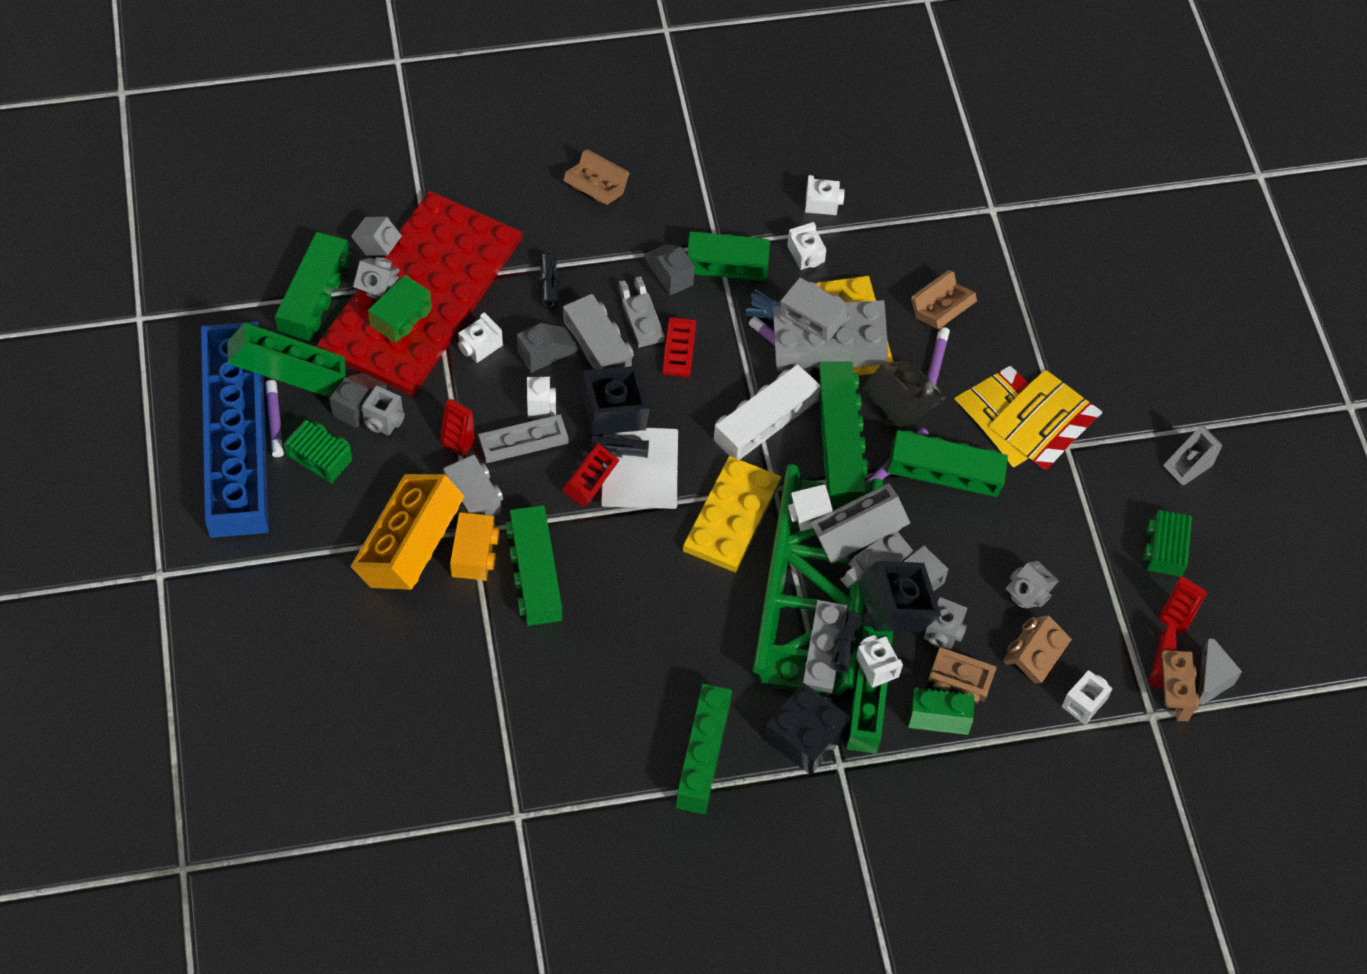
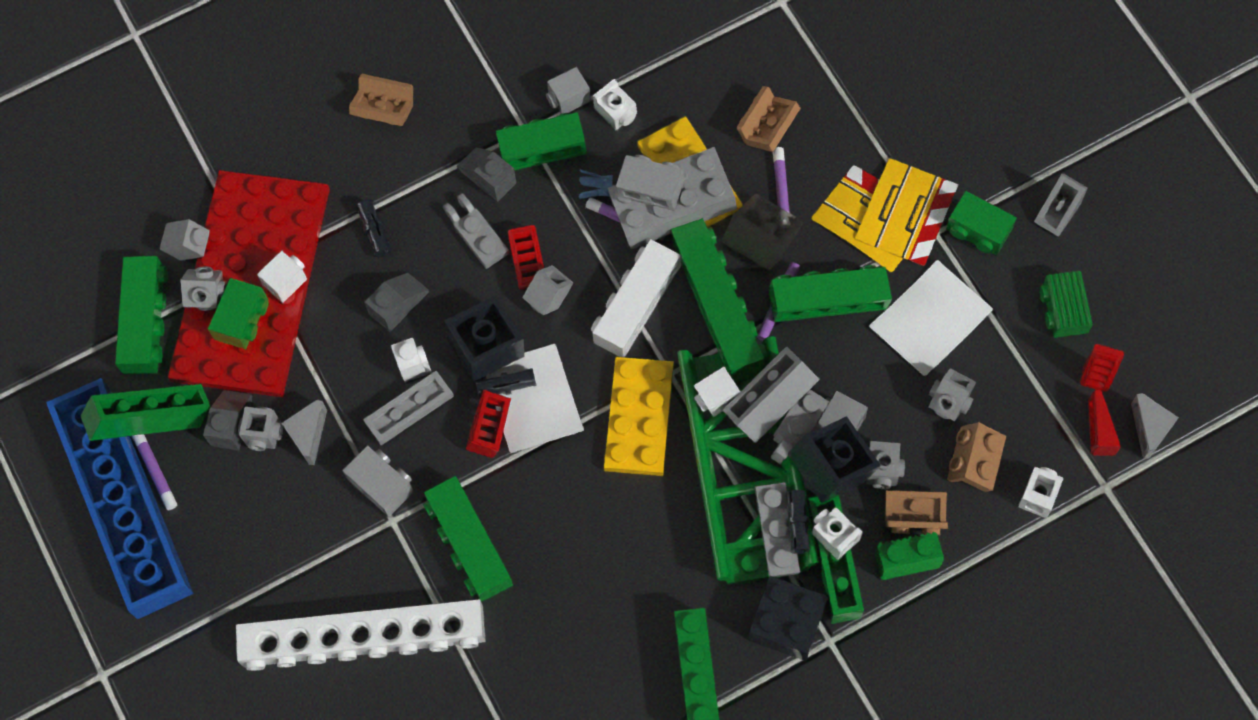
camera: 10 degrees left, 10 degrees up
(318, 450) = (211, 491): green brick -> none
(408, 531) = (332, 550): light orange brick -> none
(423, 427) = (306, 429): none -> light grey slope
(424, 608) = (253, 636): none -> white brick
(452, 290) = (282, 275): none -> white brick
(457, 428) = (340, 422): red slope -> none
(473, 546) = (400, 540): light orange brick -> none
(480, 338) = (332, 323): white brick -> none
(596, 334) = (443, 273): light grey brick -> none
(687, 378) = (547, 290): none -> light grey brick
(768, 221) = (568, 91): none -> light grey brick
(823, 196) = (612, 44): white brick -> none
(1037, 517) = (931, 318): none -> white sticker
(1111, 449) = (980, 223): none -> green brick
(1179, 683) = (1124, 449): medium nougat bracket -> none

